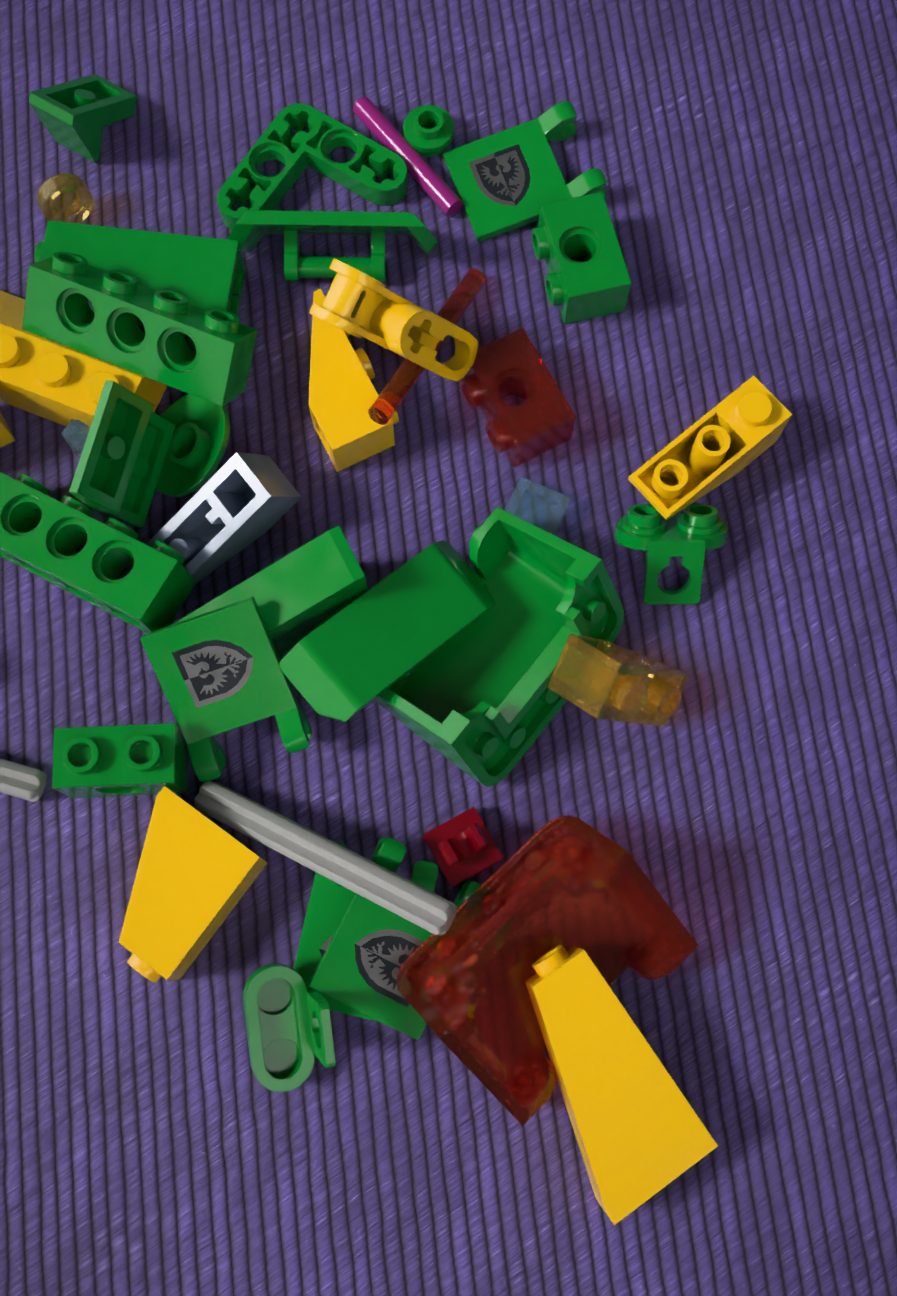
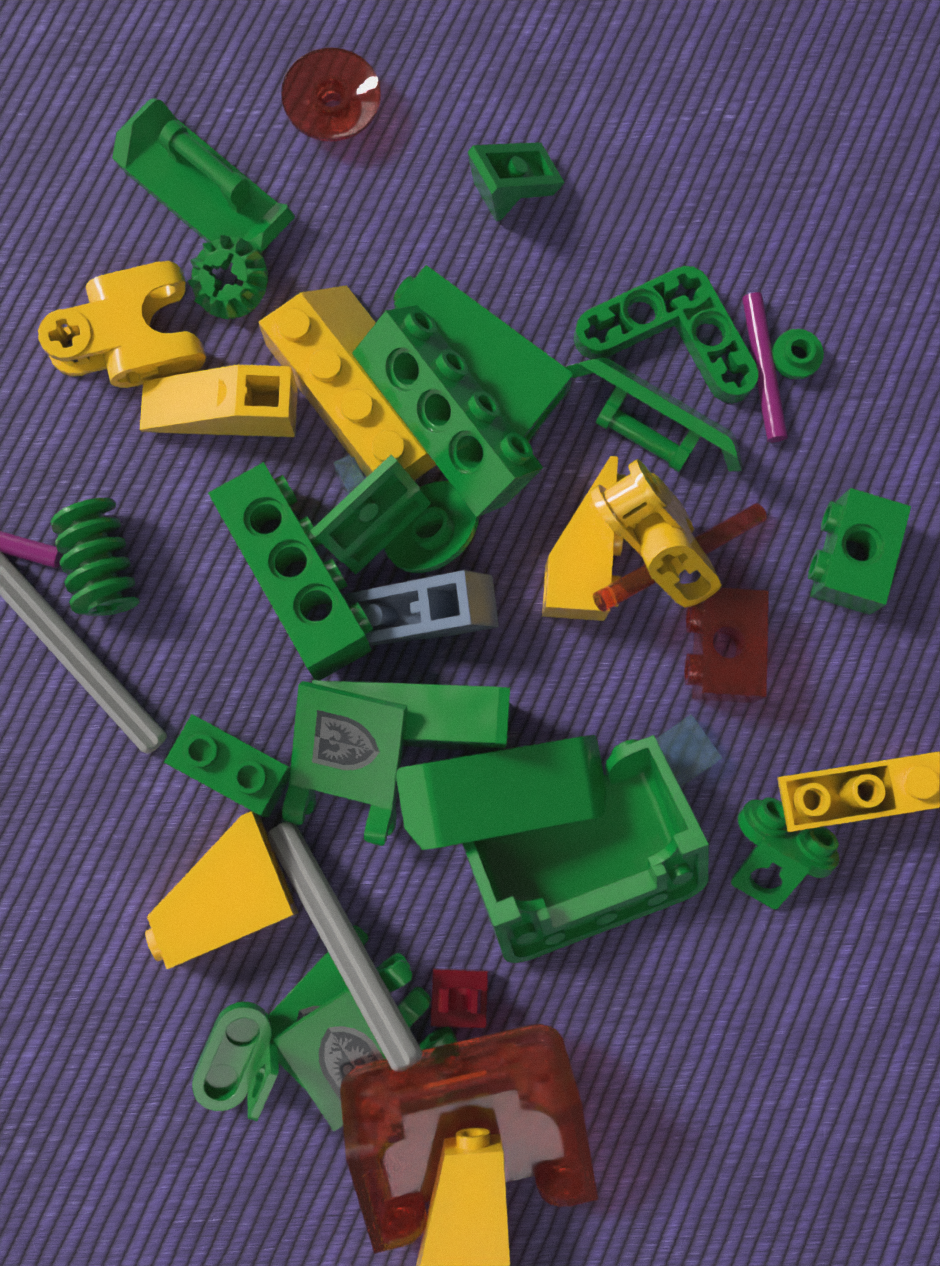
camera: 25 degrees right, 5 degrees up
(65, 199) = (451, 247): clear yellow tile -> none
(515, 172) = (846, 440): green flag -> none
(616, 682) = (663, 943): clear yellow slope -> none

